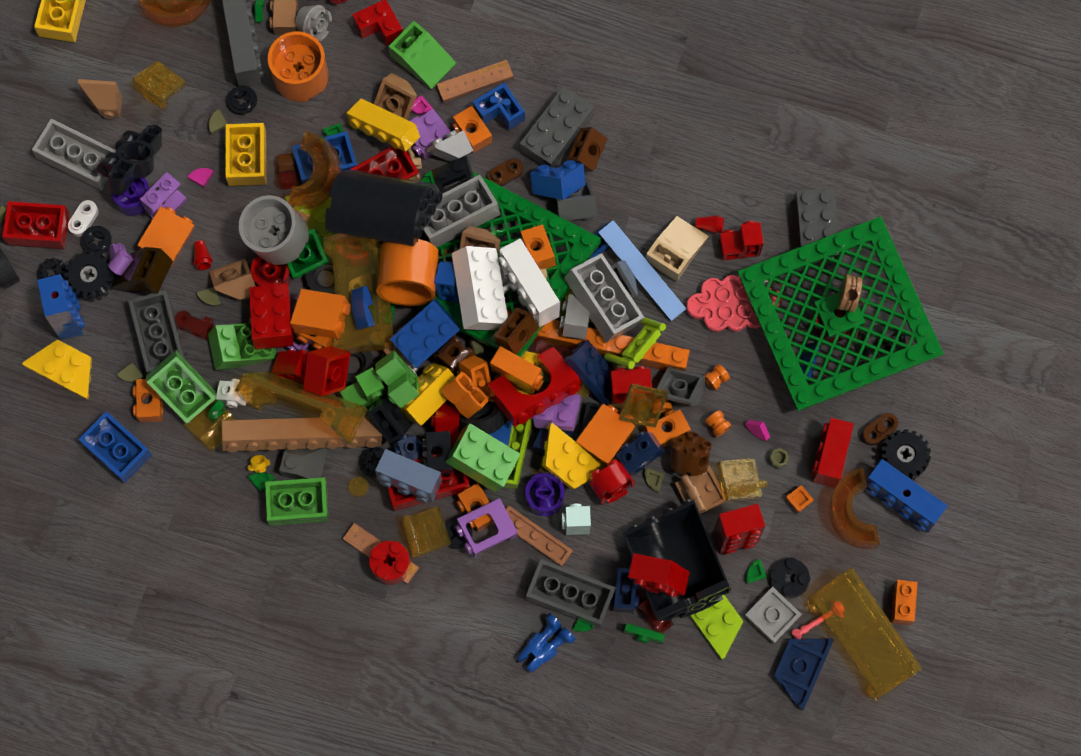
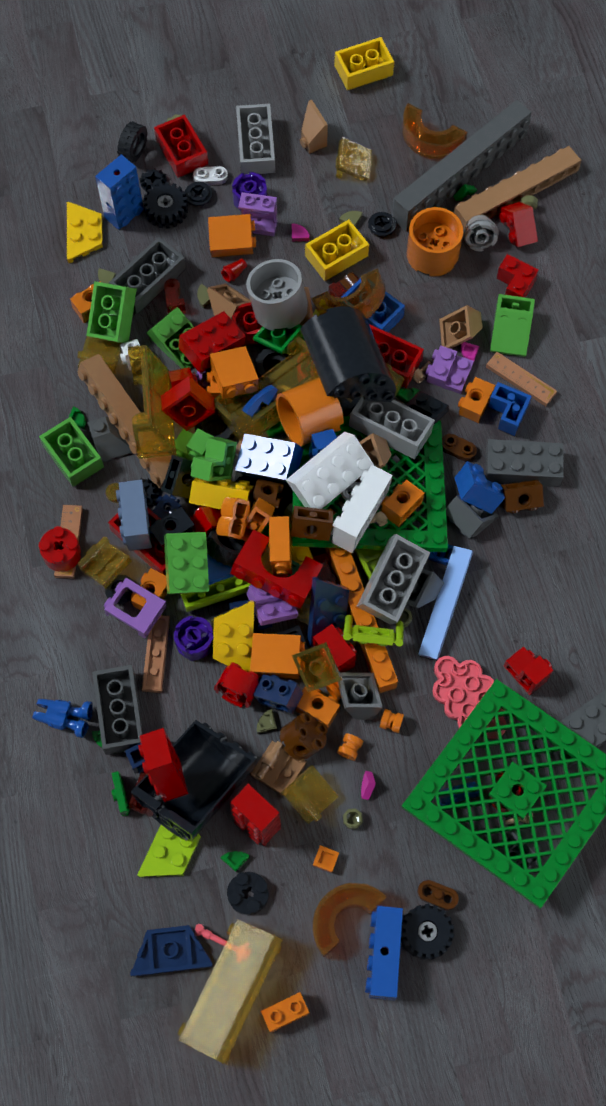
camera: 60 degrees right, 5 degrees down
(115, 447) = (37, 299): blue brick -> none
(119, 258) = (190, 213): medium lavender piece -> none
(124, 172) = (257, 167): black piece -> none
(145, 272) = (190, 236): dark brown slope -> none
(216, 411) = (111, 350): green tile -> none
(258, 463) = (88, 407): yellow plate -> none
(334, 129) = (405, 301): green tile -> none
(383, 125) = (428, 329): yellow brick -> none
(452, 147) = (448, 391): light grey slope -> none
(576, 319) = (360, 568): light grey slope -> none
(576, 520) = (186, 676): light aqua brick -> none
(676, 248) = (486, 618): tan slope -> none
(710, 223) = (530, 638): red cone -> none
(773, 615) = (203, 897): light grey plate -> none
(832, 452) = (385, 861): red brick -> none
(849, 293) = (536, 784): medium nougat head -> none

